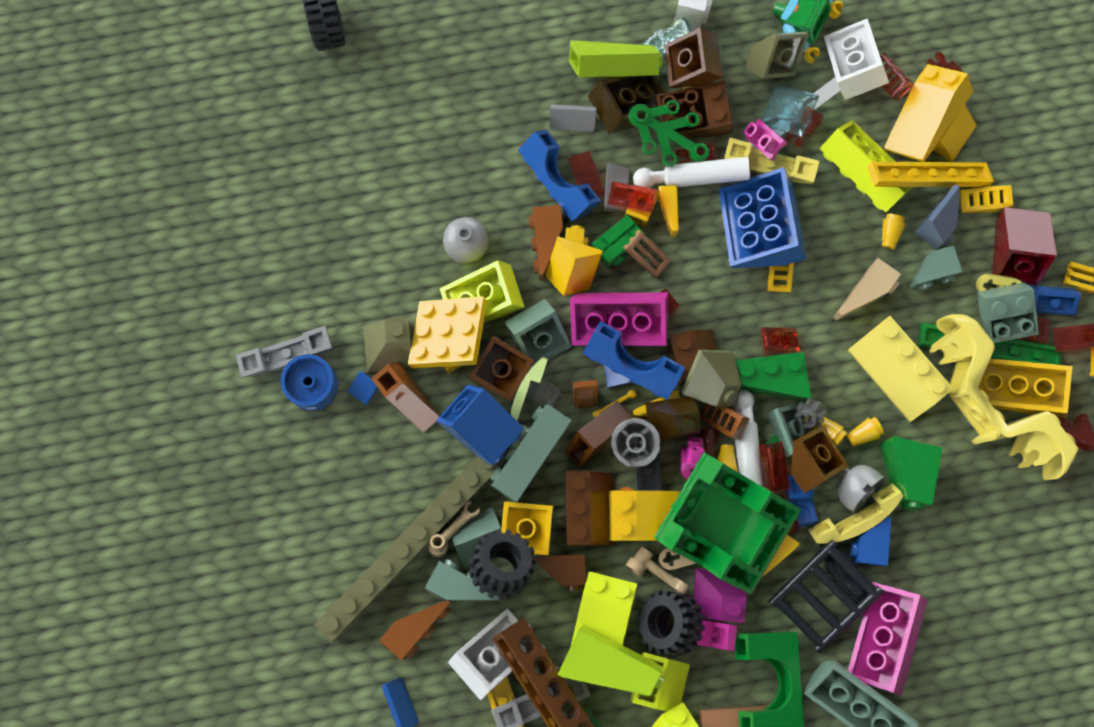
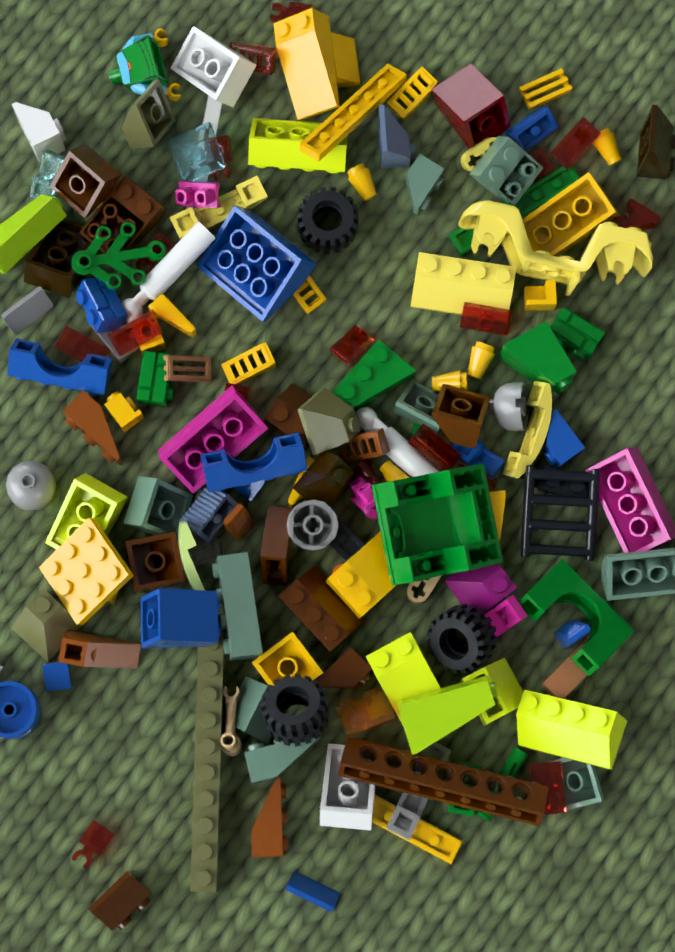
camera: 45 degrees left, 0 degrees up
(262, 585) = (121, 900): none -> reddish brown slope
(284, 526) = (95, 841): none -> clear red plate
(551, 611) = (365, 712): none -> clear orange slope
(569, 367) = (208, 513): none -> sand blue brick
(572, 266) = (137, 431): yellow slope -> none
(626, 157) = (101, 305): none -> blue brick
(631, 394) = (274, 490): yellow hinge -> none
(642, 562) = (398, 612): tan brick -> none
(703, 283) = (260, 369): none -> yellow slope
(755, 692) = (571, 632): none -> blue slope
(810, 414) = (425, 383): dark grey gear -> none
(851, 221) = (331, 202): none -> black tyre
(873, 285) = (385, 239): tan slope -> none
(896, 406) = (486, 318): none -> clear red plate
(951, 427) = (540, 297): none -> yellow panel
(955, 477) = (576, 334): none -> green brick

